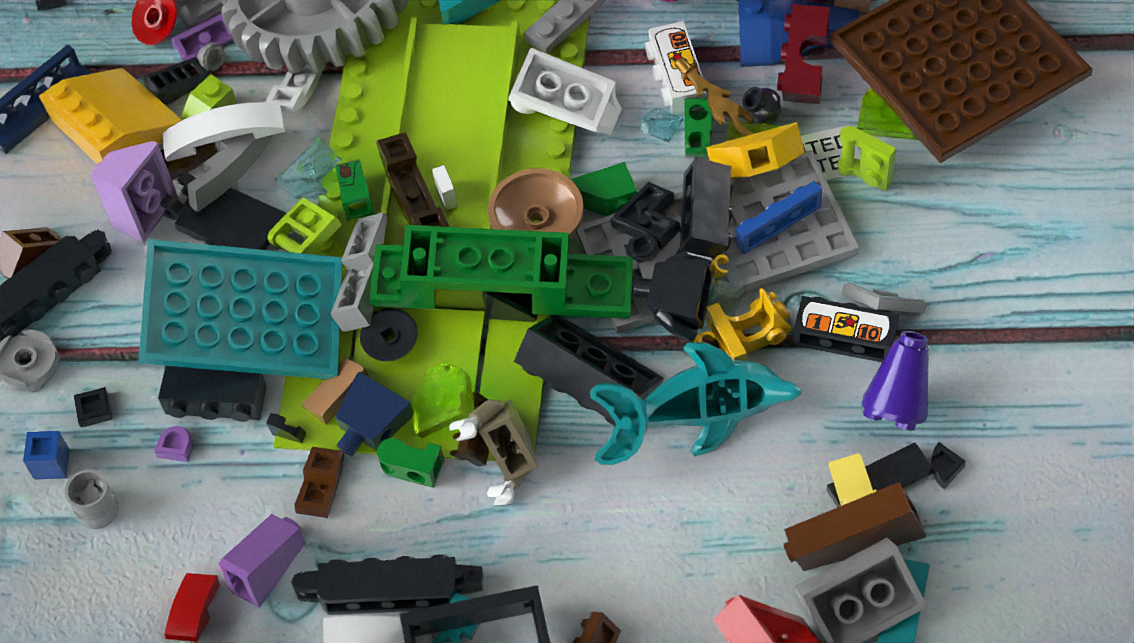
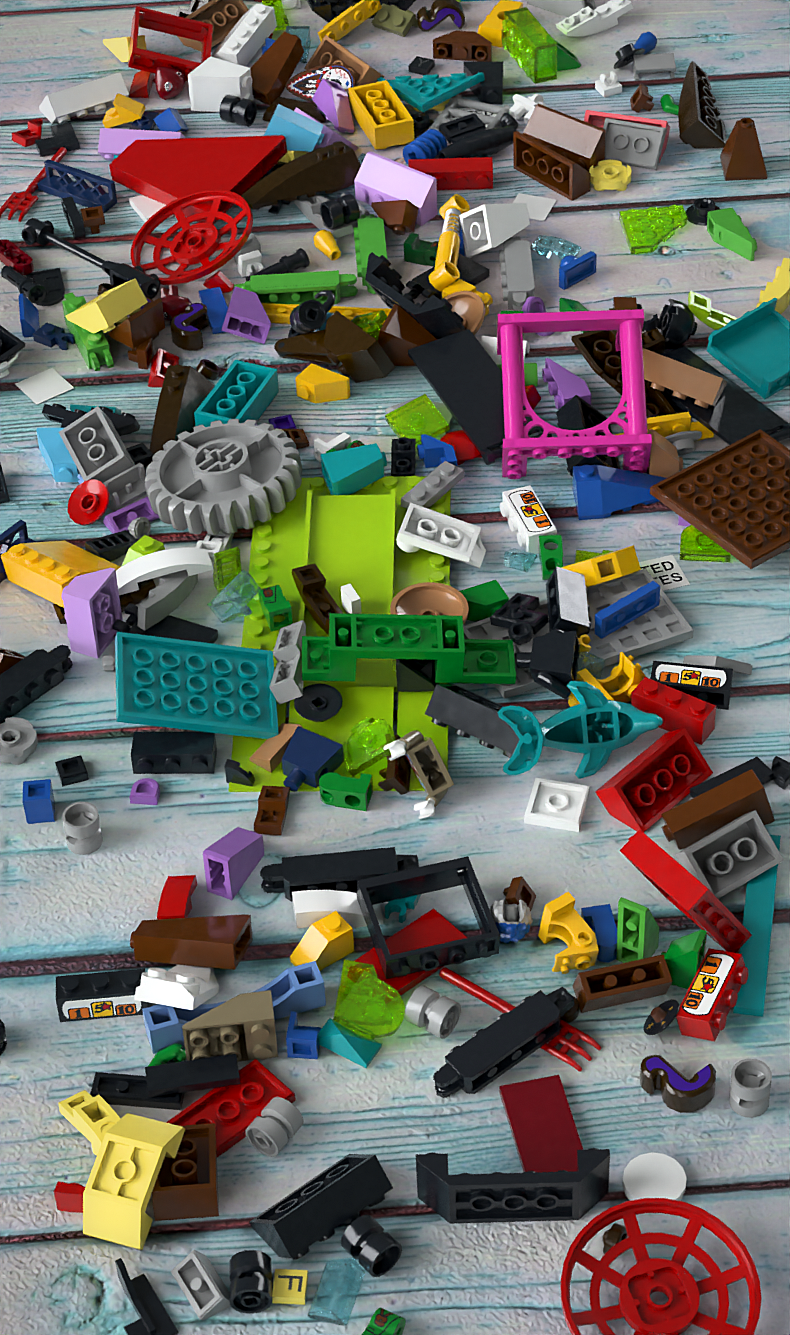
camera: 10 degrees left, 15 degrees down
(303, 128) = (219, 570): none -> clear neon green slope
(308, 221) = (241, 632): lime plate -> none
(662, 495) = (557, 804): none -> white tile
(716, 98) = (565, 534): pearl gold piece -> none
(762, 104) = (602, 537): black animal -> none
(782, 472) = (655, 780): none -> red slope
(806, 27) = (631, 485): dark red arch -> none
(819, 368) = (675, 709): none -> red brick
(850, 478) = (708, 776): light yellow bracket -> none
(876, 159) = (699, 568): lime plate -> none
(901, 384) = (742, 709): dark purple cone -> none

